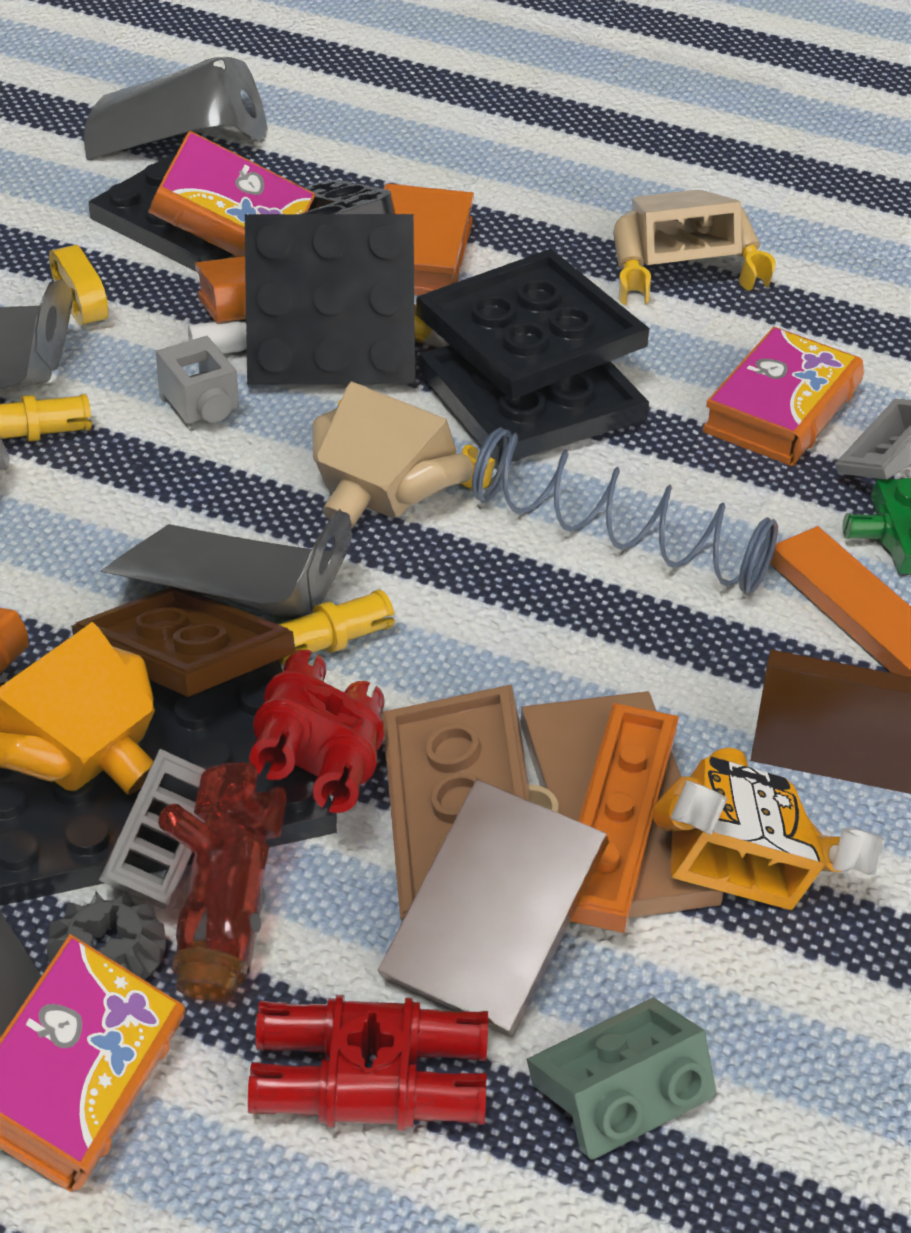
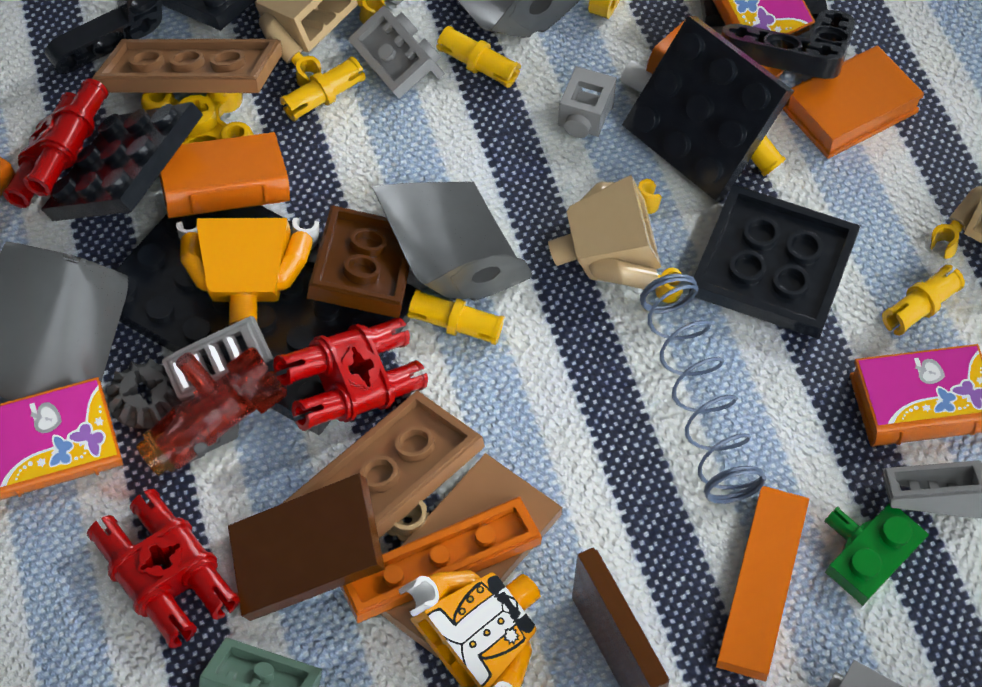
camera: 50 degrees right, 15 degrees up
(531, 323) = (815, 218): black plate -> none
(683, 334) = (923, 299): none -> yellow pin

